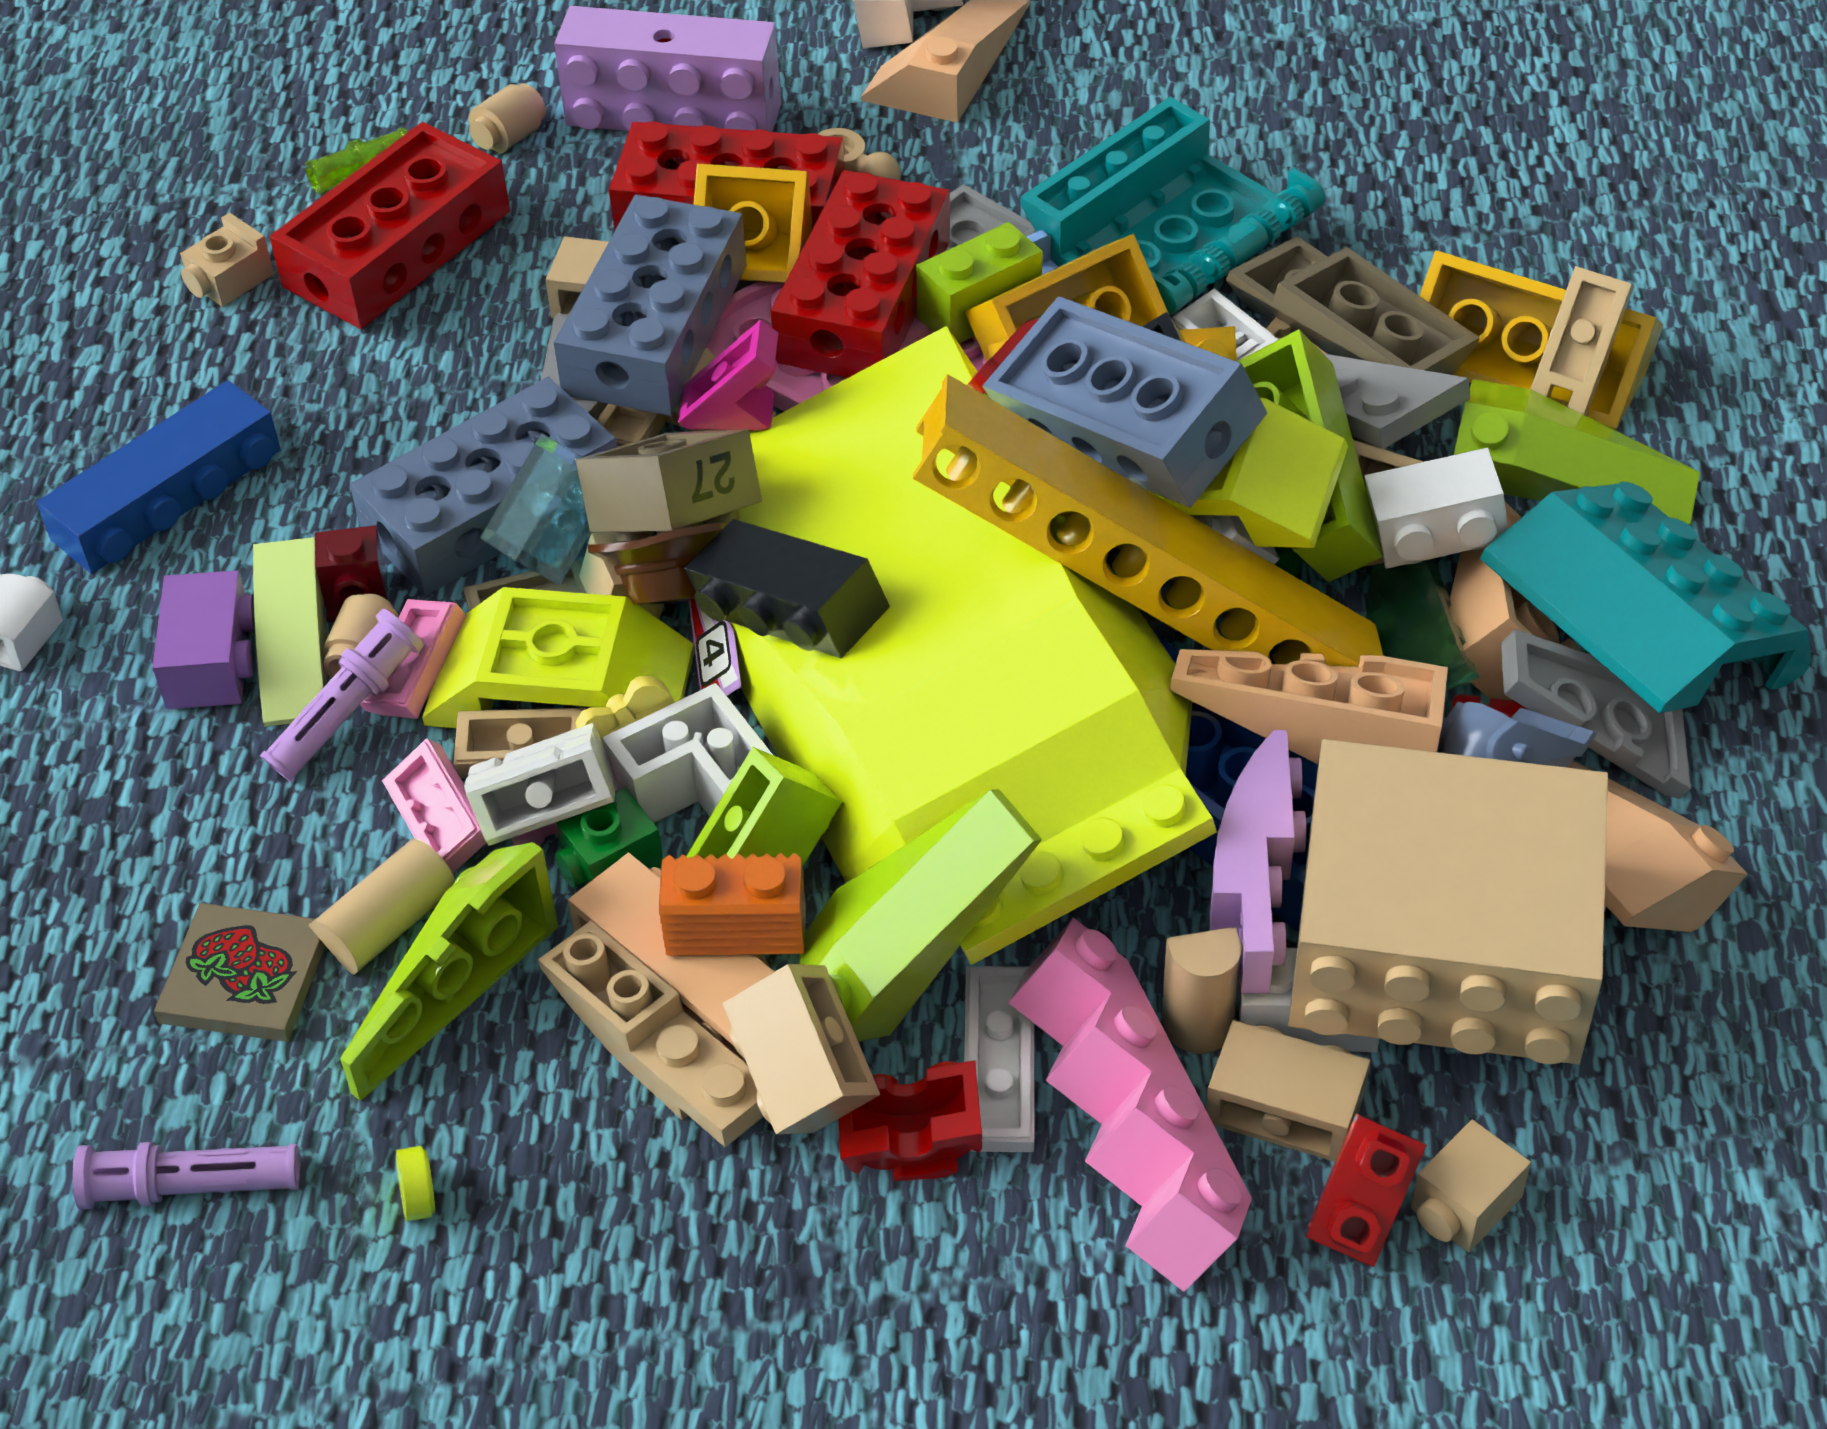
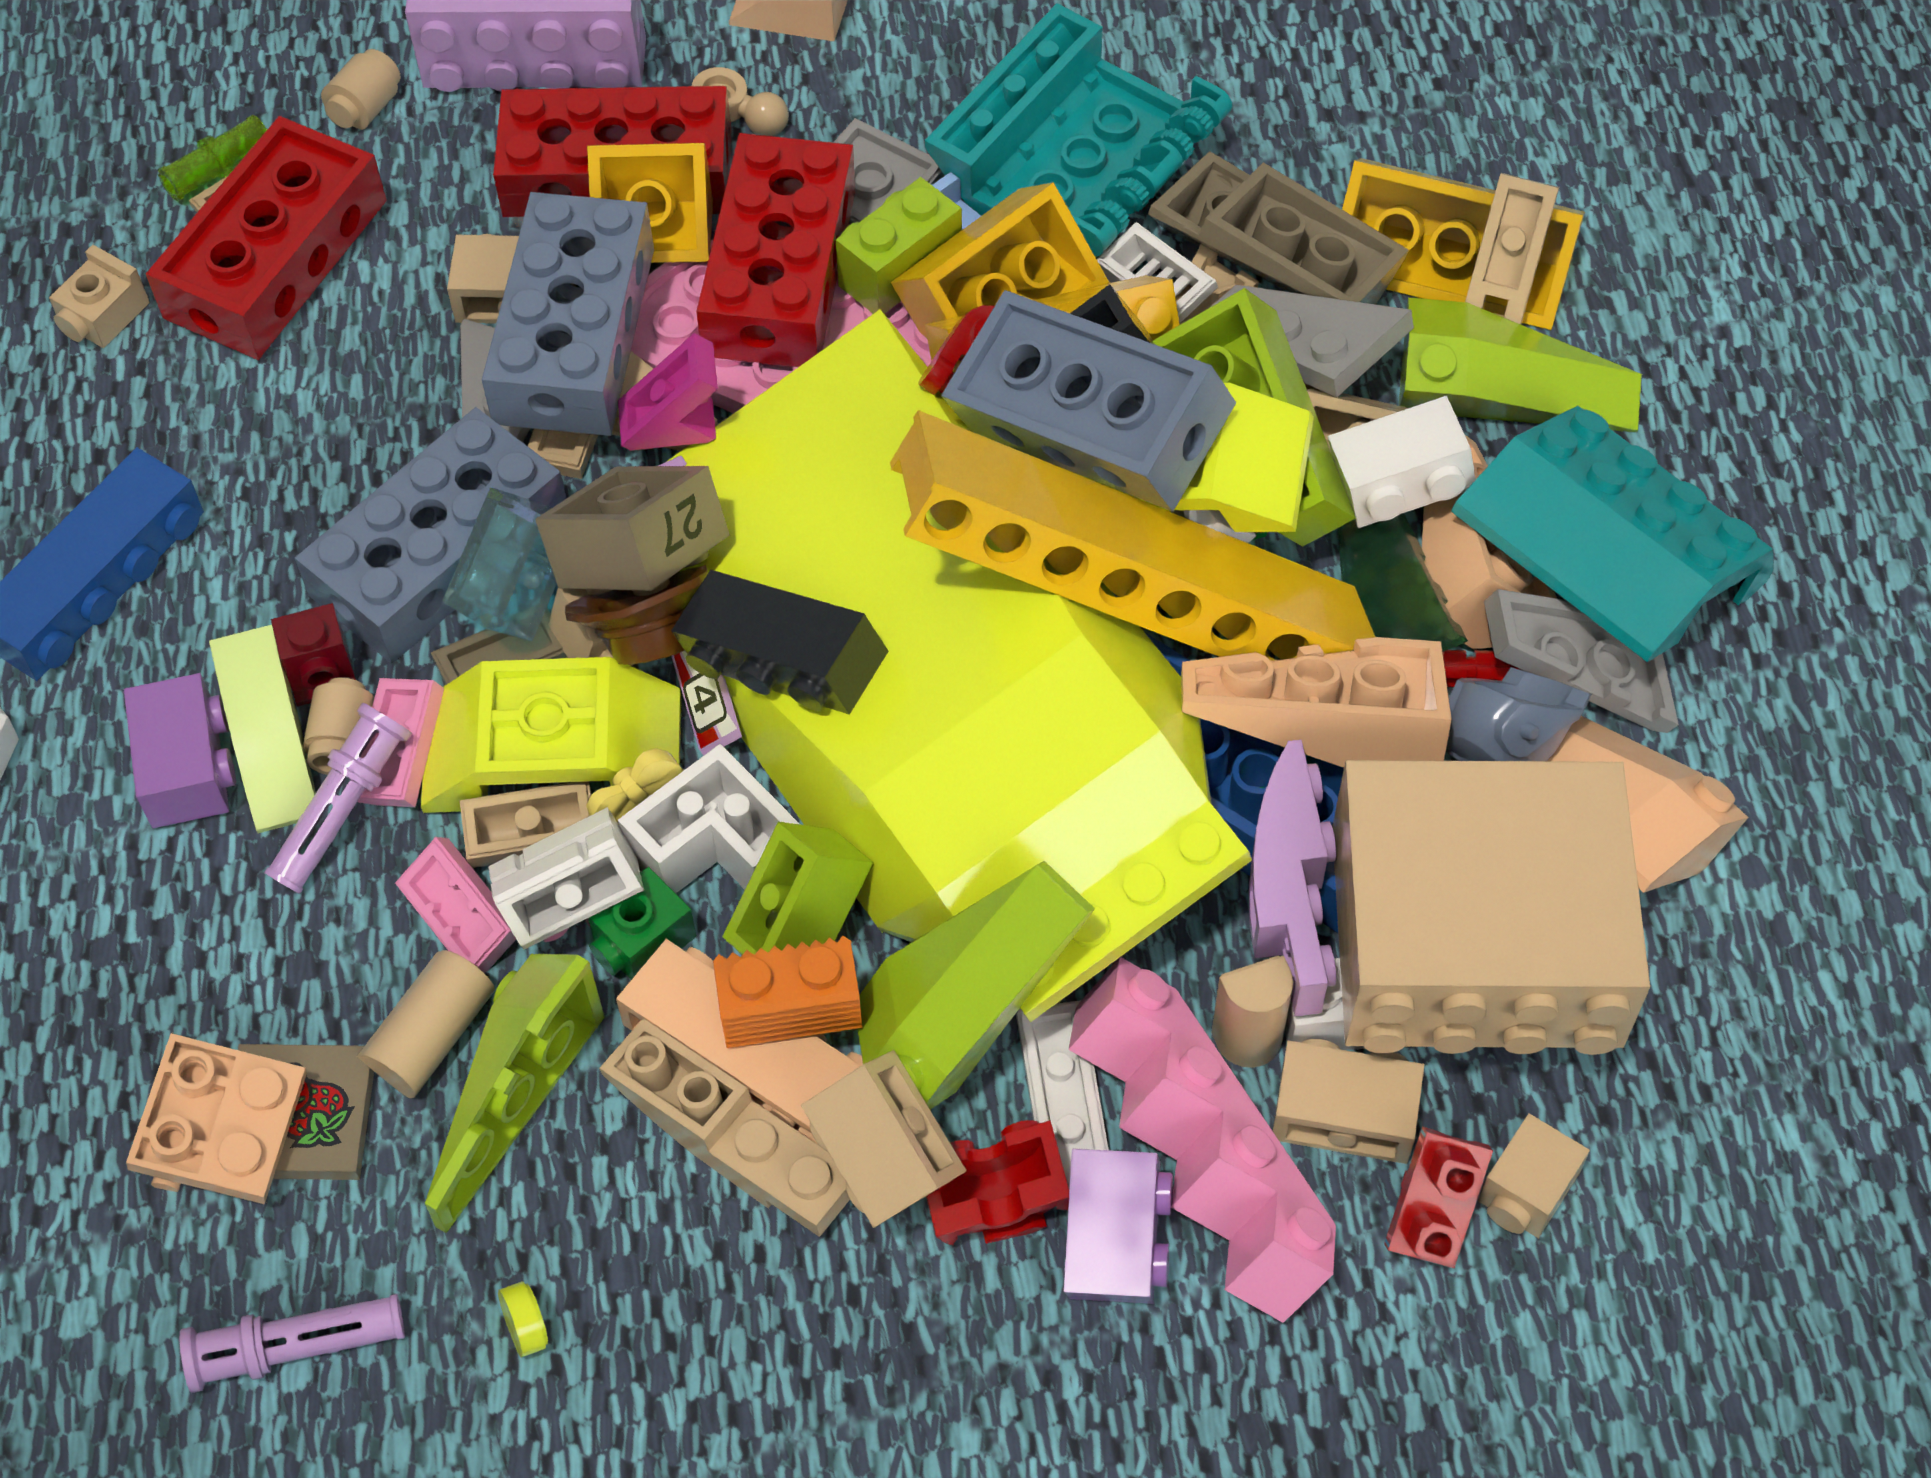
camera: 10 degrees left, 10 degrees up
(159, 961) = (216, 1119): none -> light nougat plate
(1024, 1171) = (1114, 1226): none -> brick

